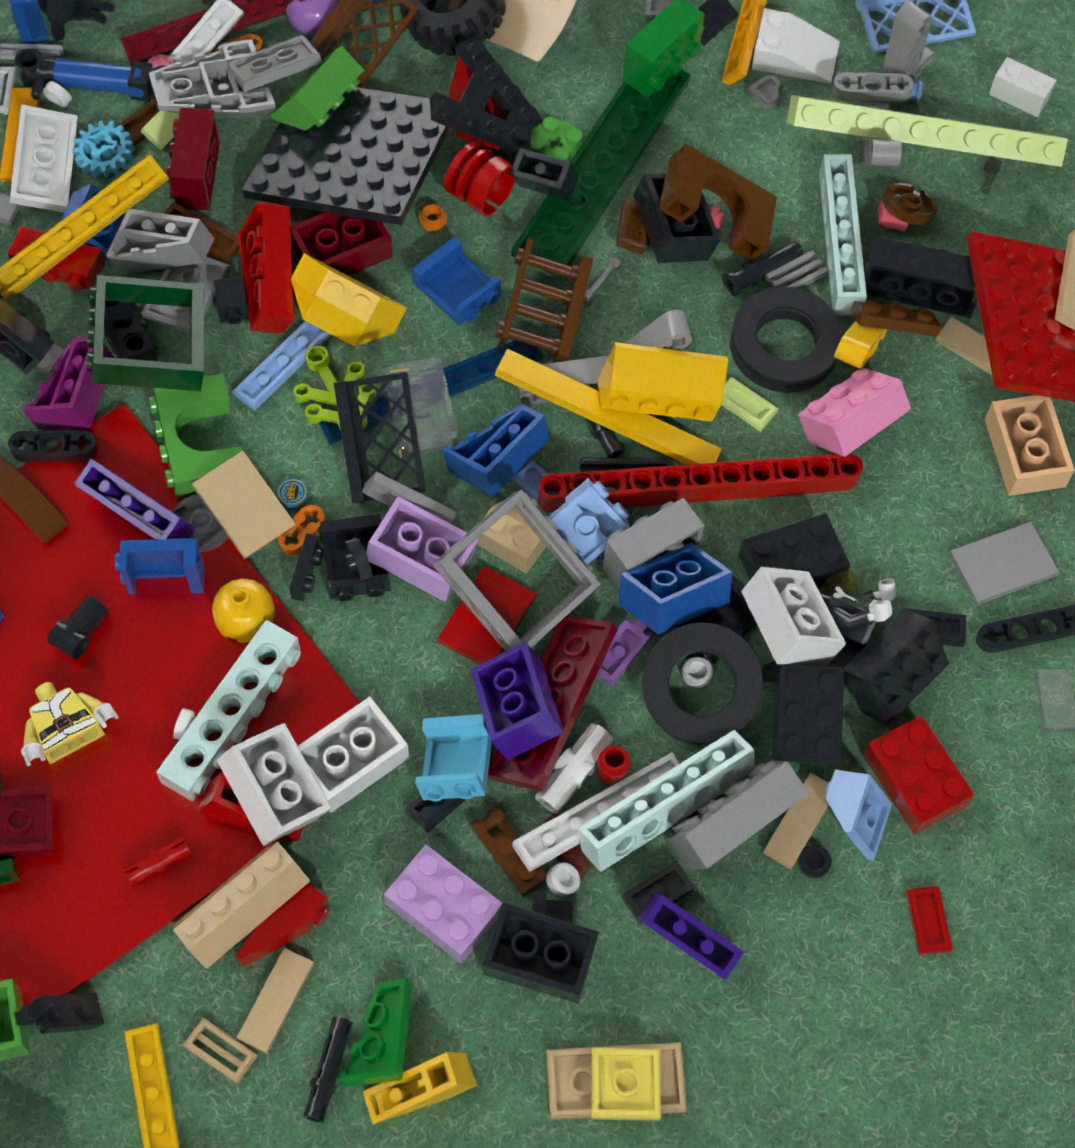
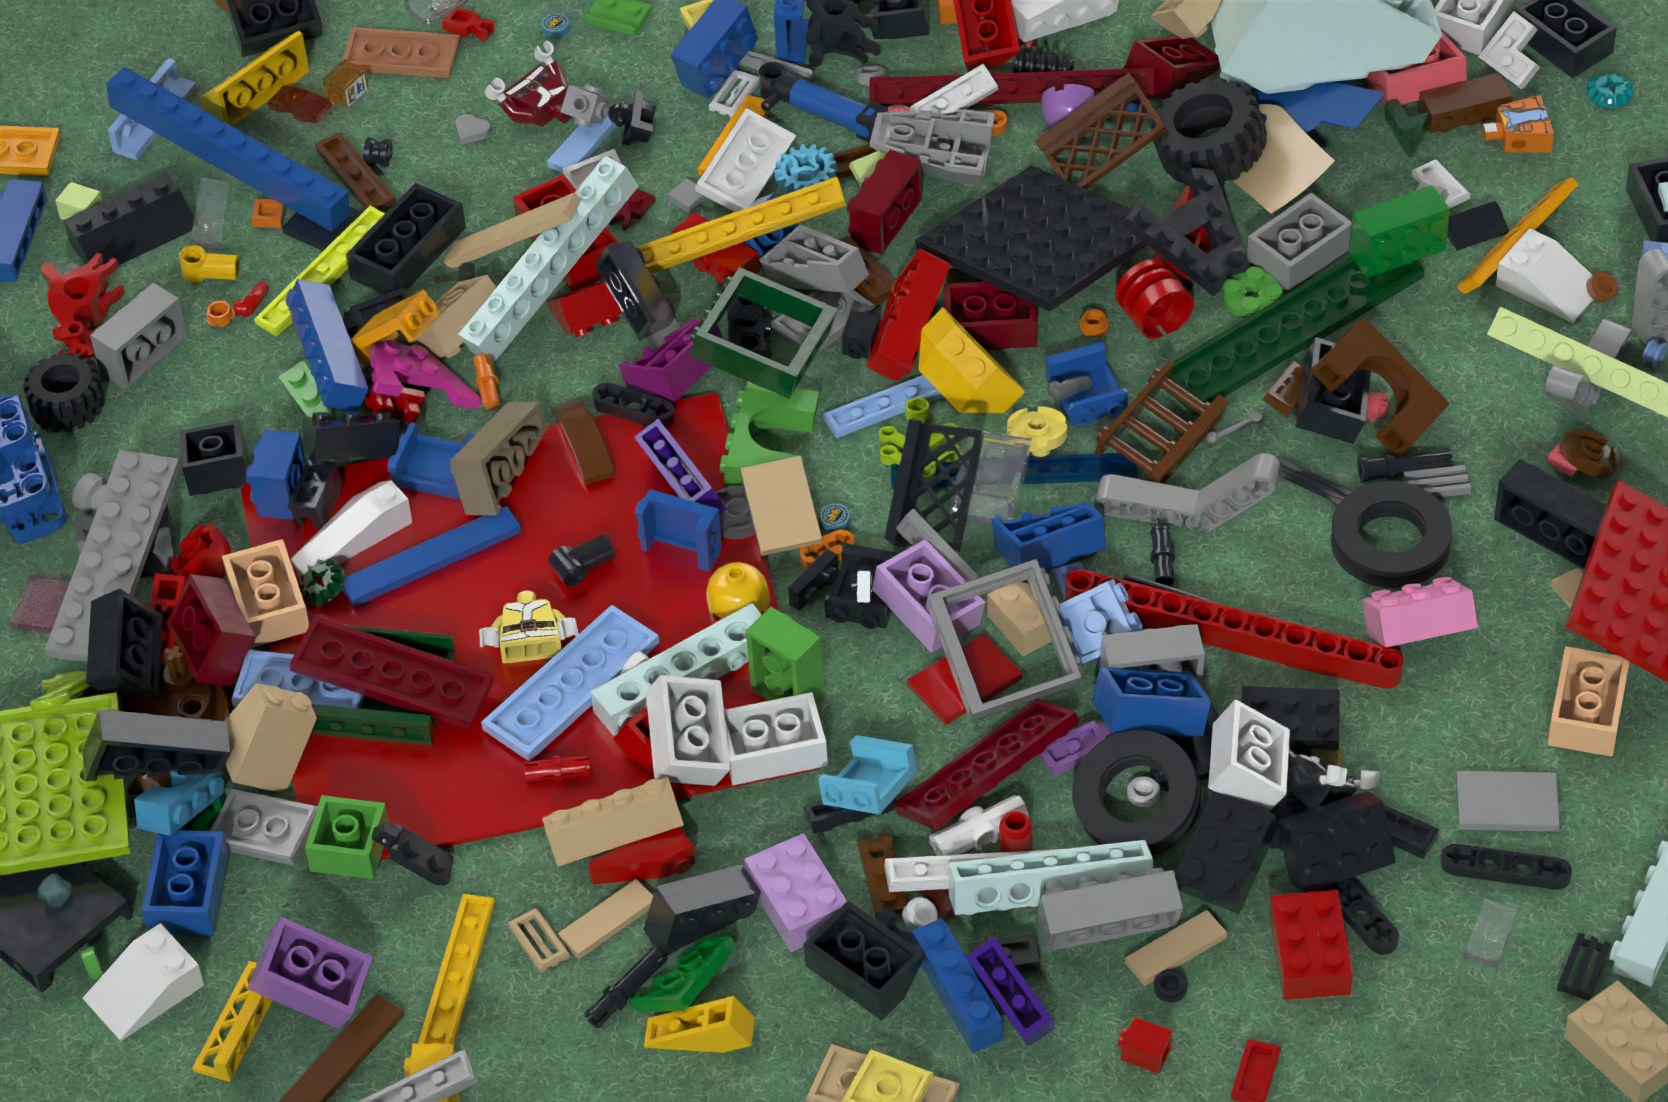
camera: 30 degrees right, 15 degrees down
(57, 94) = (786, 111): white tile -> none
(115, 32) = (867, 72): none -> light grey tile
(127, 765) = (563, 685): none -> light blue plate
(274, 63) = (1001, 137): light grey tile -> none
(319, 91) = (1034, 174): bright green slope -> none
(331, 673) = (784, 658): none -> bright green brick
(362, 957) = (699, 906): none -> black wedge
(436, 327) = (1045, 428): none -> light yellow plate
(440, 296) = (1068, 388): none -> dark grey arm
(516, 701) = (948, 745): dark purple brick -> none
(544, 174) = (1218, 311): black brick -> none
(576, 81) = (1300, 241): none -> light grey brick
(586, 403) = (1168, 534): yellow tile -> none
(634, 943) = (958, 986): none -> blue brick
(663, 382) = (1236, 524): yellow slope -> none
(696, 310) = (1312, 481): none -> black axle
(747, 404) = (1320, 580): yellowish green tile -> none
(766, 91) = (1491, 305): light grey tile -> none
(826, 934) = (1145, 1044): none -> red brick
(840, 43) = (1601, 286): none -> dark orange tile
(842, 233) = (1498, 455): light aqua brick -> none
(853, 79) = (1582, 332): light grey beam -> none
(859, 344) = (1462, 555): yellow beam -> none
(859, 809) = (1235, 953): light blue slope -> none
(896, 318) = (1513, 547): reddish brown plate -> none
(945, 737) = (1366, 930): none -> black beam

